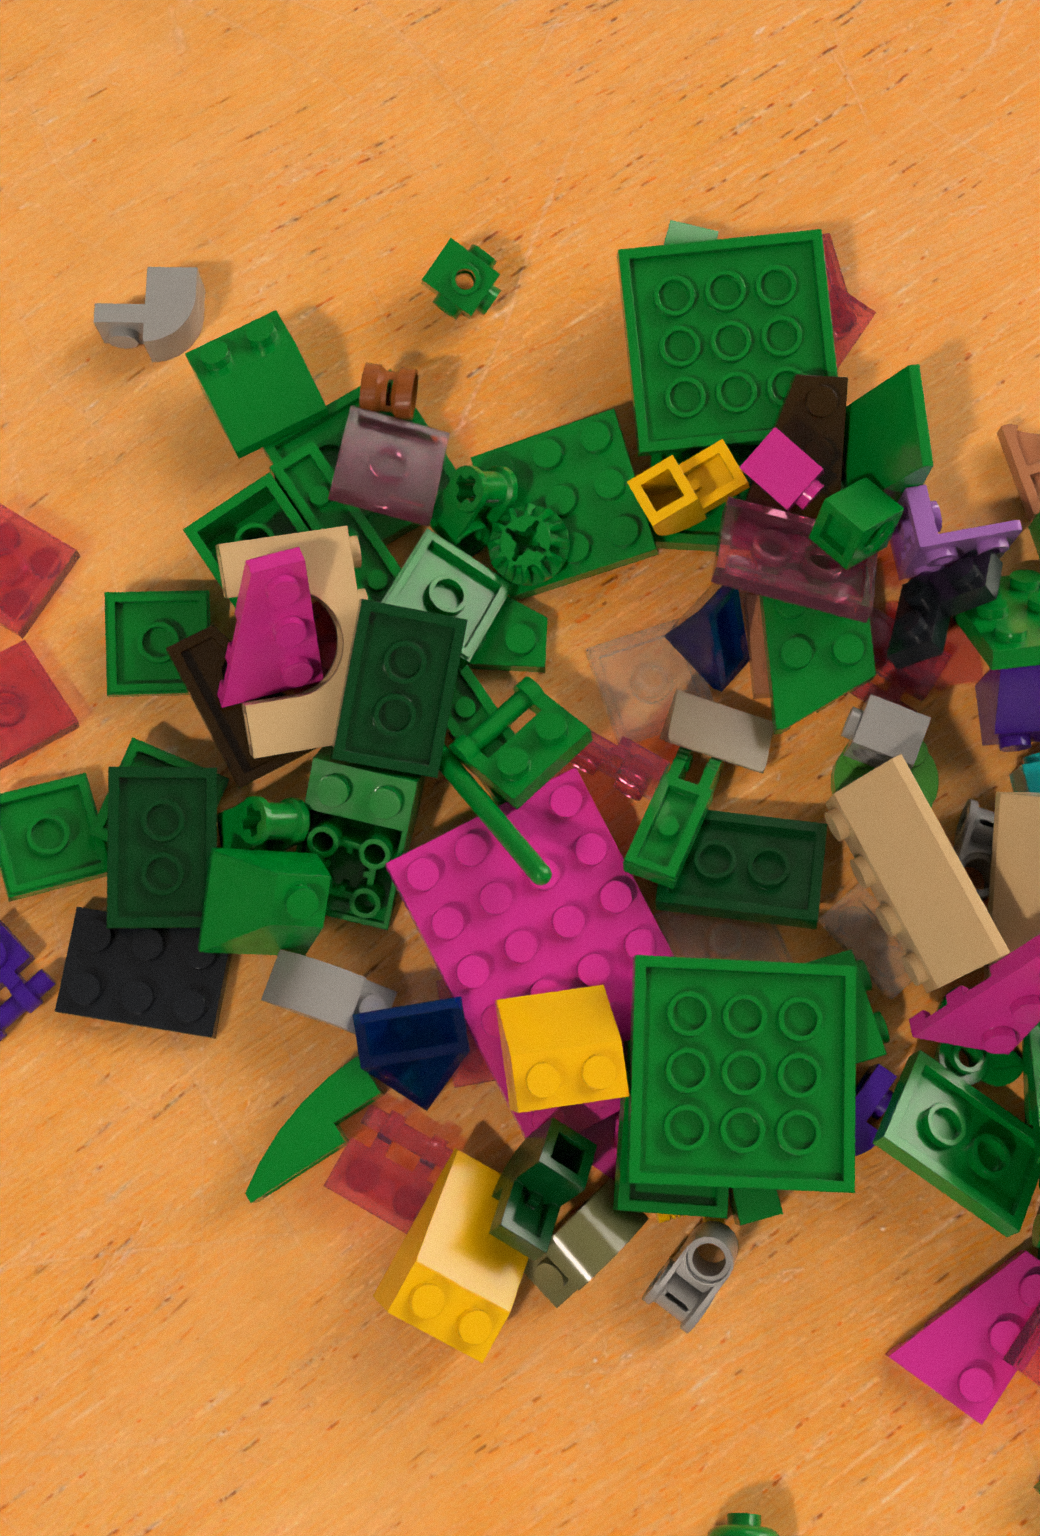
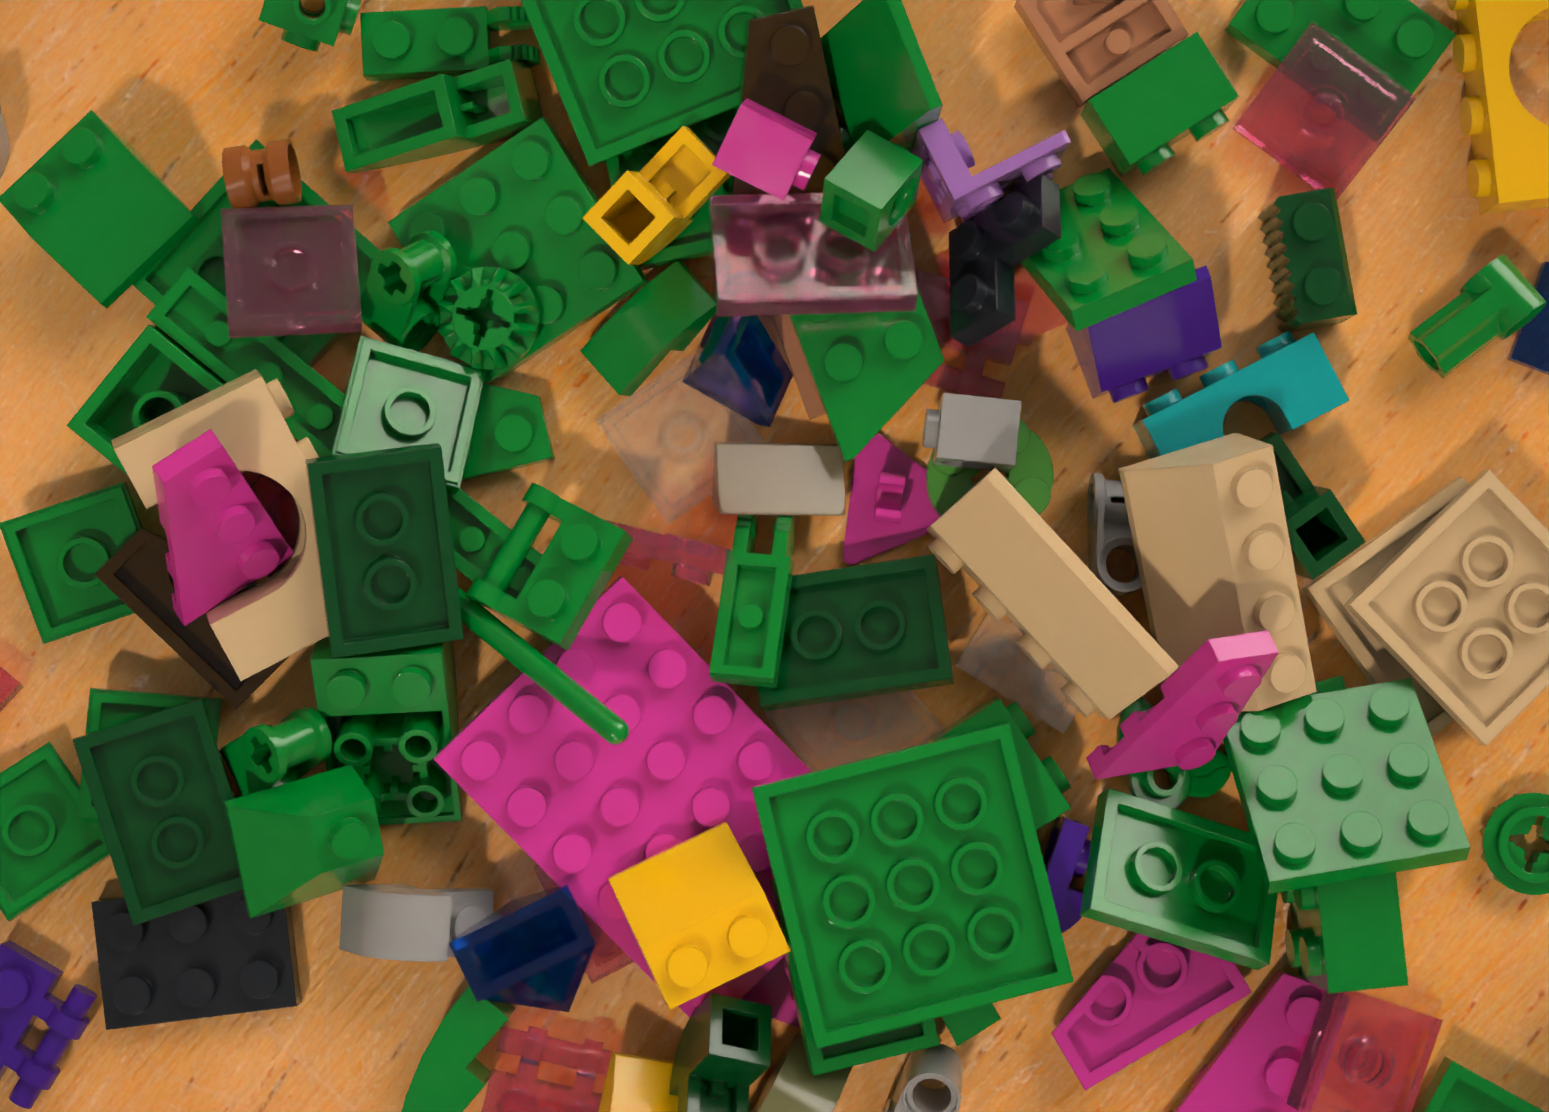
camera: 20 degrees left, 10 degrees up
(531, 391) = (437, 116): none -> green slope
(553, 341) = (439, 41): none -> green hinge
(655, 585) = (649, 326): none -> green slope
(796, 778) = (885, 502): none -> dark pink piece
(904, 1239) = (1142, 1003): none -> dark pink wing

